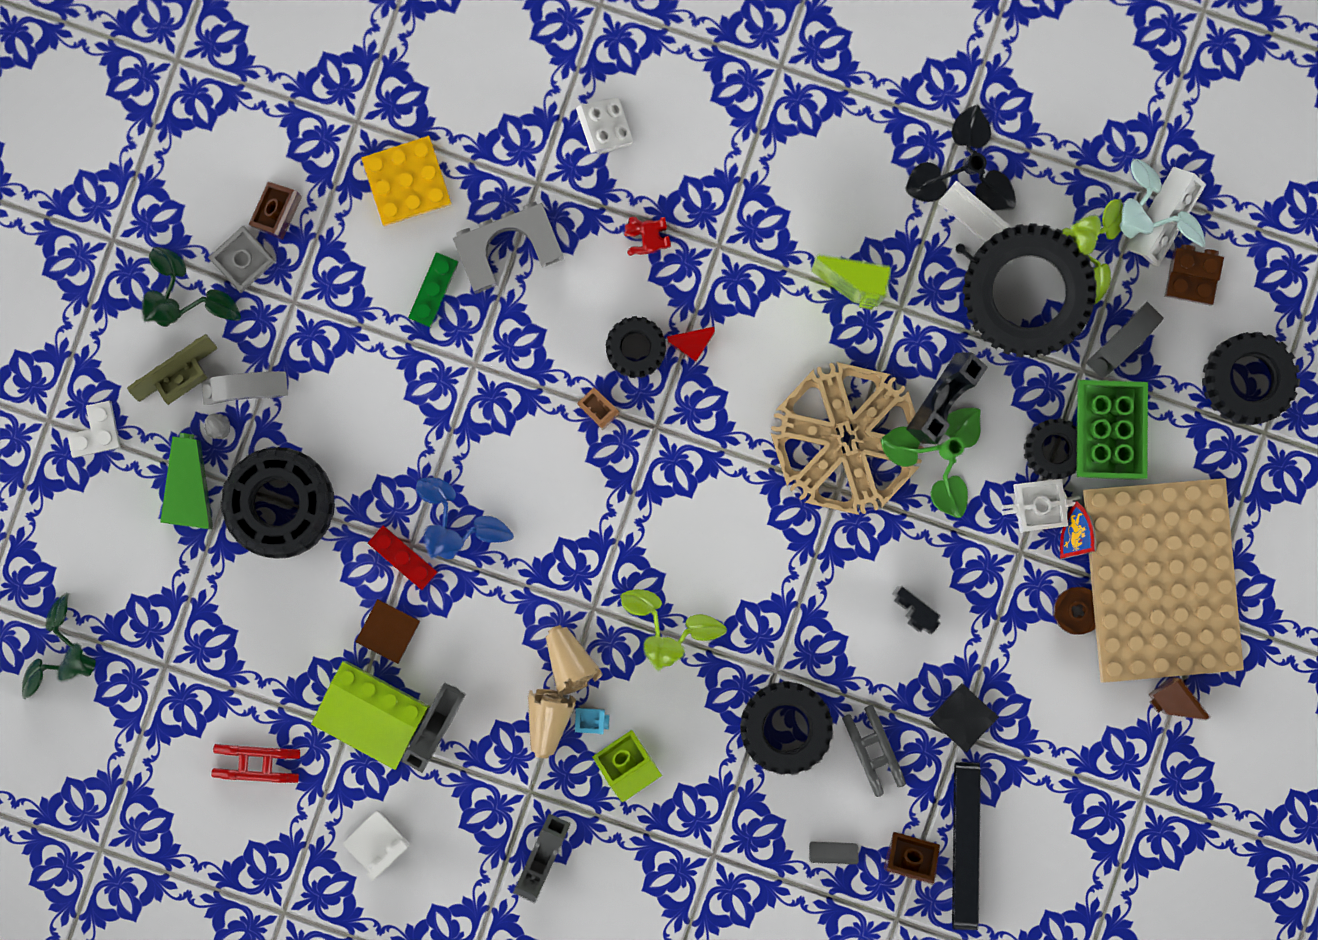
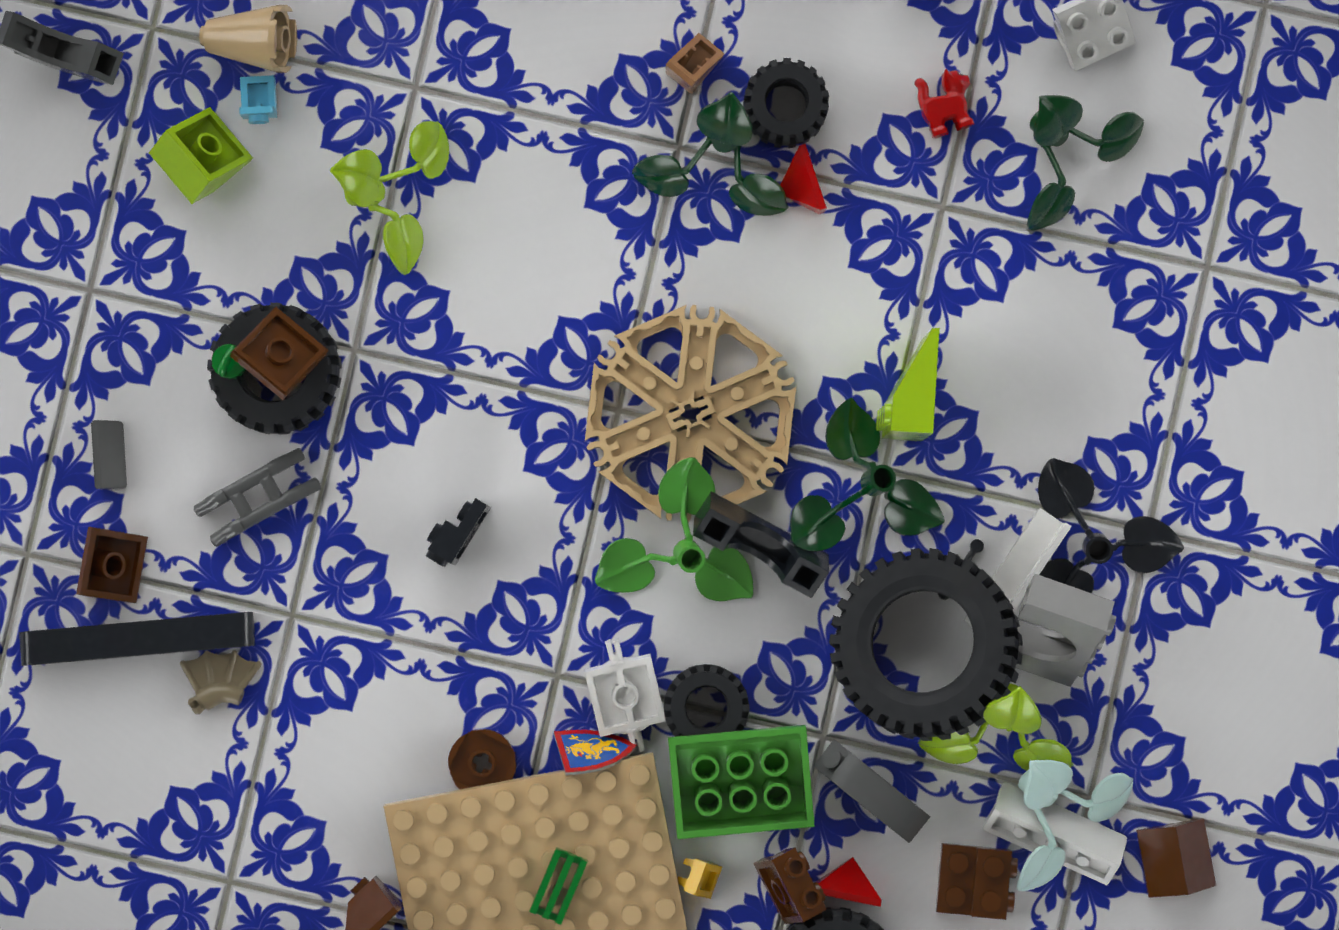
camera: 85 degrees right, 0 degrees up
(569, 661) = (336, 58): tan cone -> none
(652, 390) = (727, 129): none -> dark green plant
(674, 161) = (1052, 127): none -> dark green plant
(780, 721) = (279, 353): none -> reddish brown tile
(781, 757) = (224, 364): none -> green tile
(928, 291) = (910, 509): none -> dark green plant
(963, 717) = (315, 616): black brick -> none
(999, 791) = (218, 679): none -> dark tan arm
(1030, 194) = (1079, 624): none -> light grey arch
(1173, 465) = (701, 877): none -> yellow tile
(1187, 403) = (791, 886): none -> reddish brown plate
(1188, 363) = (850, 884): none -> red slope
(1188, 574) = (547, 912): none -> green tile
(1192, 134) = (1176, 858): none -> reddish brown slope

